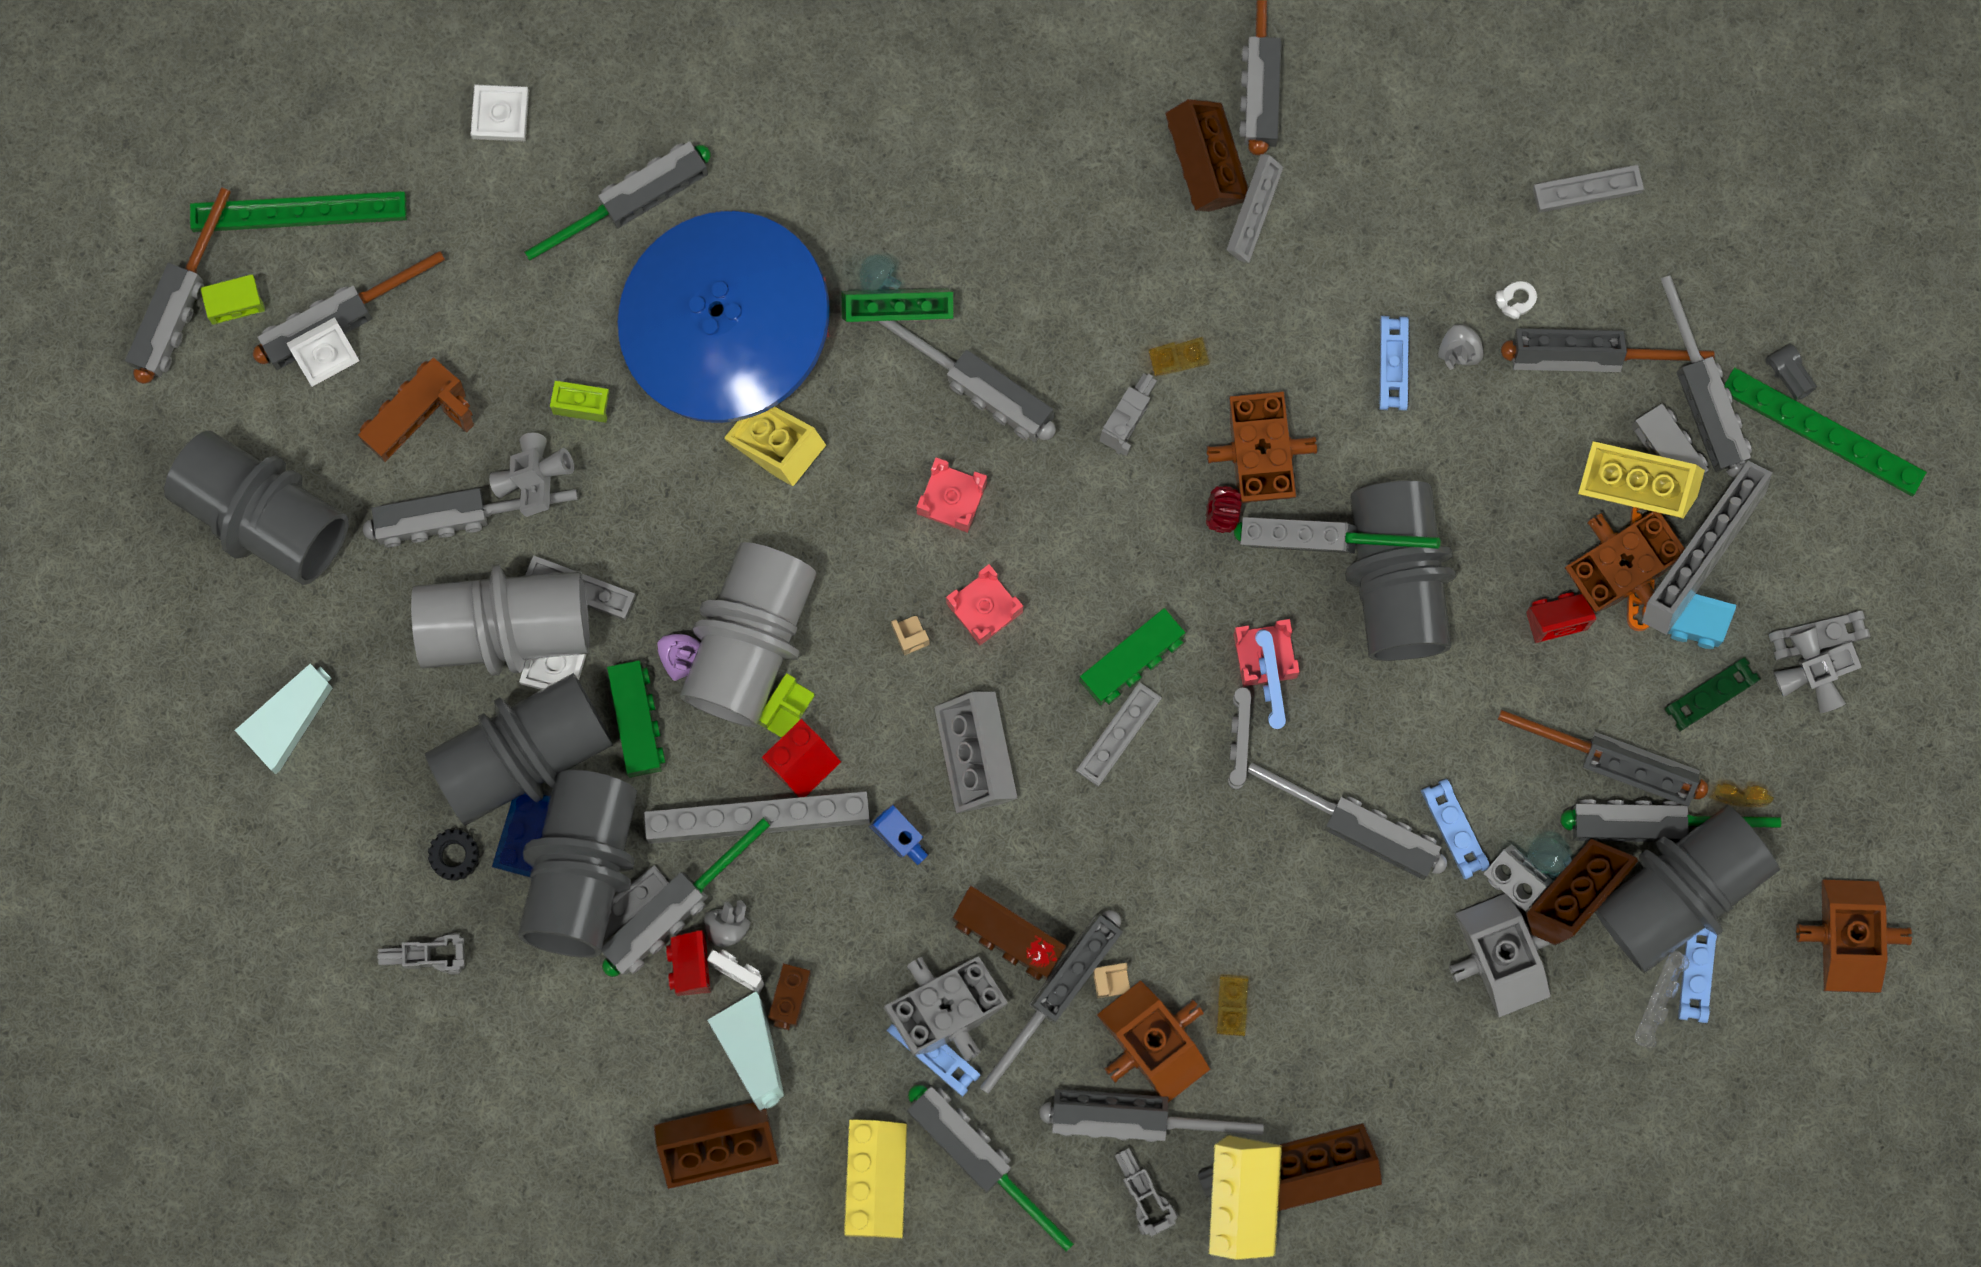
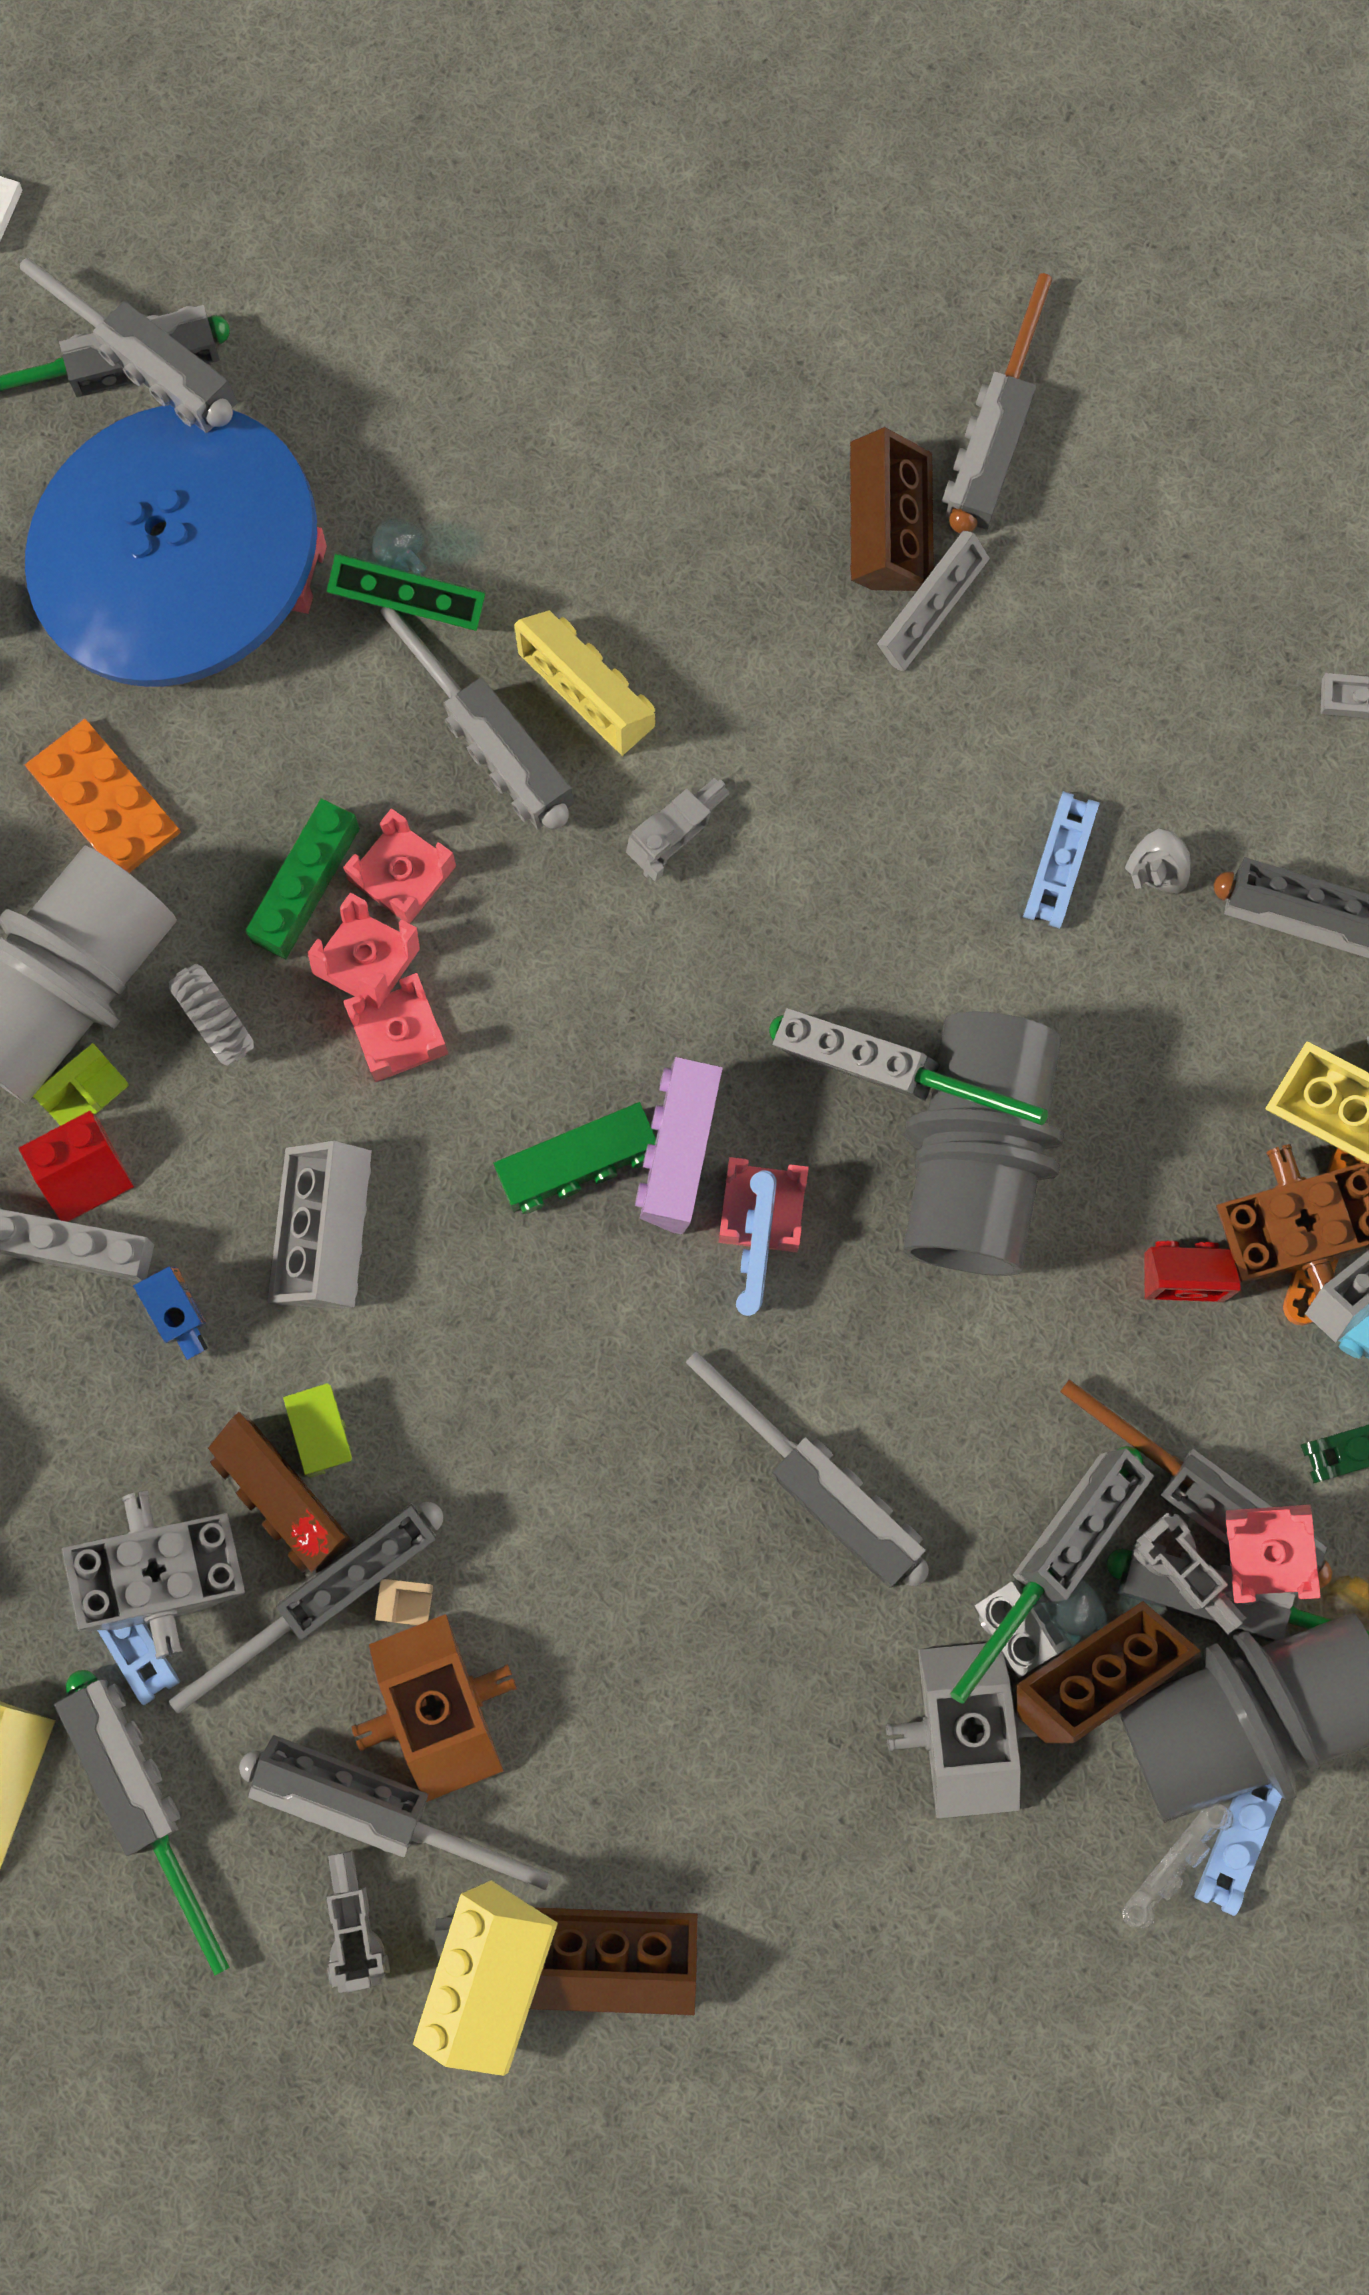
camera: 15 degrees right, 0 degrees up
(670, 191) = (150, 357): none -> piece
(730, 504) = (102, 797): none -> orange plate
(777, 443) = (190, 732): light yellow slope -> none
(859, 631) = (211, 1014): none -> light grey gear
(889, 522) = (303, 879): none -> green brick
(910, 635) = (282, 1040): tan panel -> none
(947, 561) = (364, 953): none -> coral panel
(1019, 885) = (318, 1429): none -> lime panel
(1035, 331) = (584, 680): none -> light yellow slope
(1118, 734) = (525, 1259): light grey tile -> none
(1179, 357) = (768, 770): clear yellow slope -> none
(1201, 628) = (680, 1144): none -> lavender slope
(1223, 509) = (764, 990): dark red gear -> none
(1232, 1005) = (563, 1687): clear yellow slope -> none
(1240, 726) = (684, 1329): light grey plate -> none
(1261, 422) = (850, 887): dark orange slope -> none
(1455, 829) = (955, 1528): light blue plate -> none
(1518, 309) = (1254, 835): white piece -> none
(1532, 817) = (1067, 1547): none -> dark grey piece
(1623, 814) = (1196, 1581): none -> light grey piece
(1664, 781) = (1272, 1552): none -> coral panel

